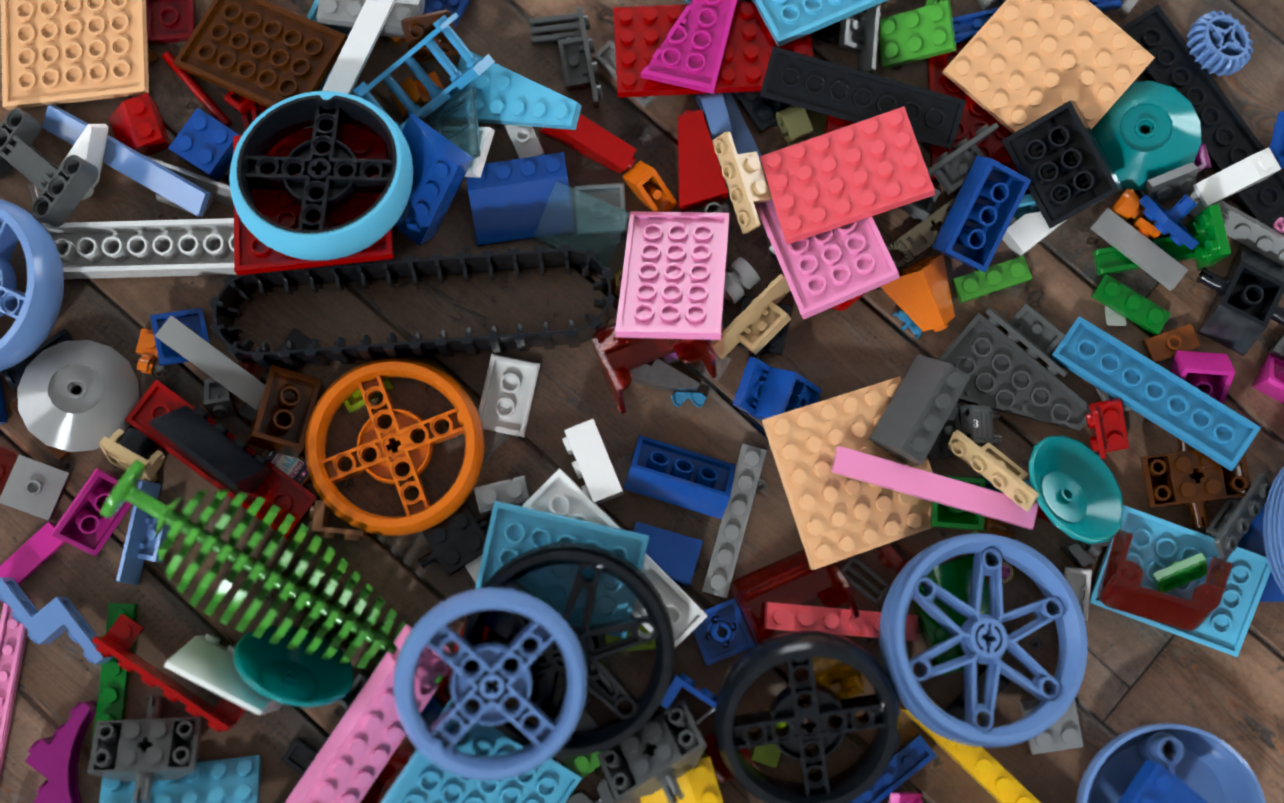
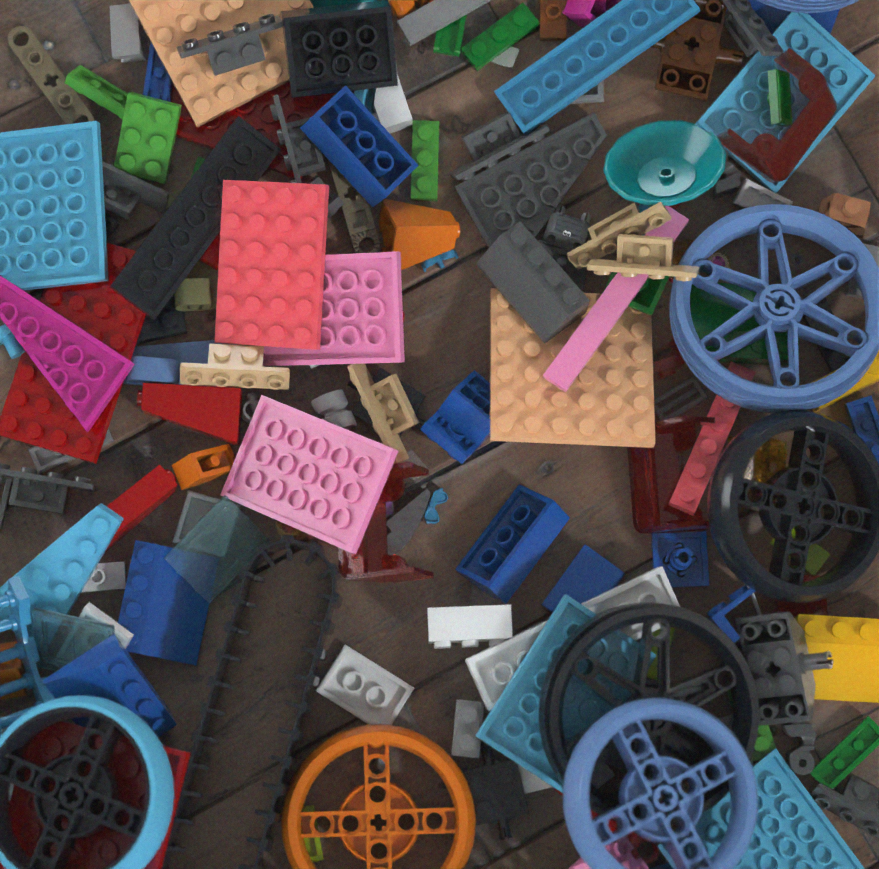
camera: 75 degrees left, 0 degrees up
(734, 521) = (576, 505): light grey plate -> none
(982, 497) = (644, 256): none -> tan bracket
(1024, 73) = (234, 47): none -> dark grey bracket
(1098, 676) = (847, 211): none -> nougat torso
(1108, 427) = (613, 107): red bracket -> none

